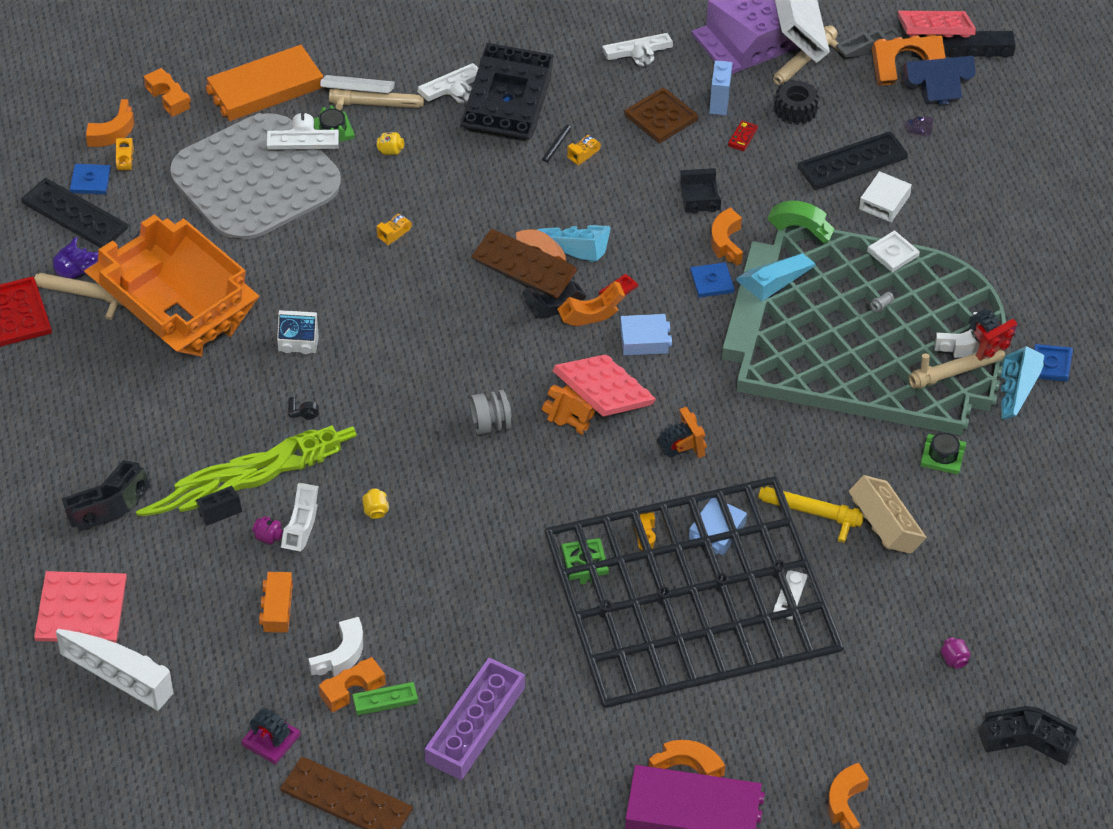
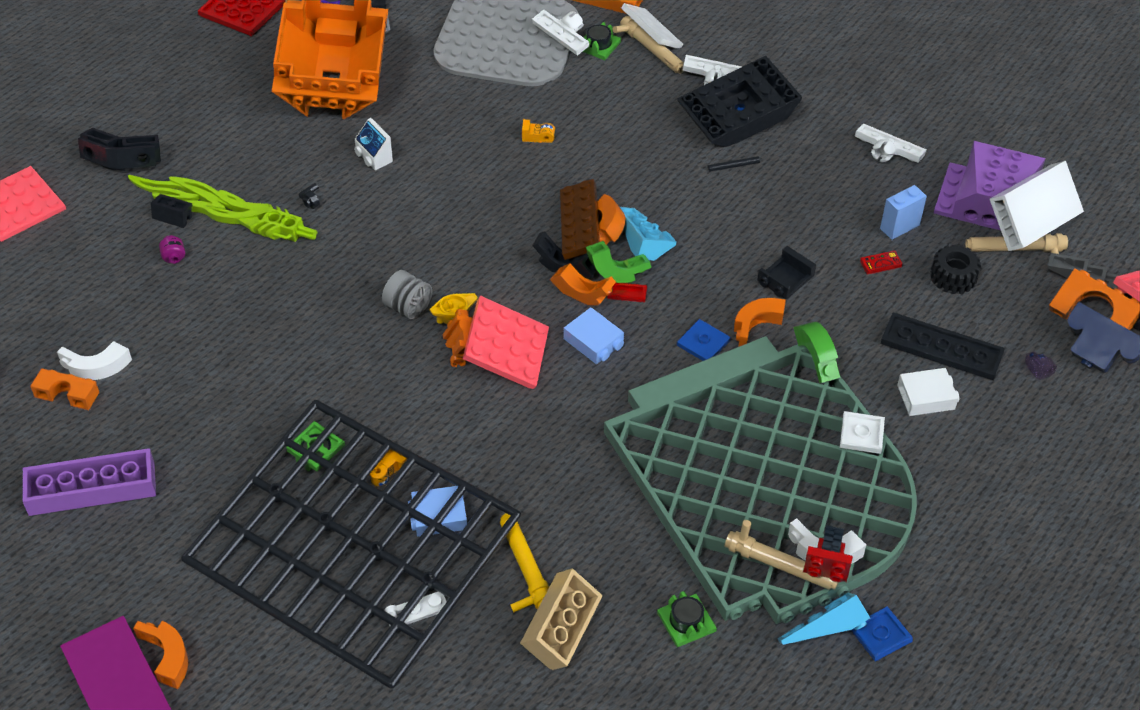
camera: 50 degrees right, 0 degrees up
(276, 602) = (108, 298): orange brick -> none
(303, 517) = (205, 260): white arch -> none
(375, 503) = (256, 291): yellow head -> none
(385, 698) = (70, 417): bright green plate -> none
(390, 143) = (617, 78): yellow head -> none
(533, 392) = (448, 305): none -> yellow hat
(583, 149) = (744, 180): light orange leg -> none
(595, 274) = (620, 270): none -> bright green arch
(661, 115) = (837, 201): reddish brown plate -> none
(683, 436) = (507, 426): plate -> none
(772, 277) = (741, 372): medium azure wedge -> none
(878, 304) = (795, 460): light grey pin -> none

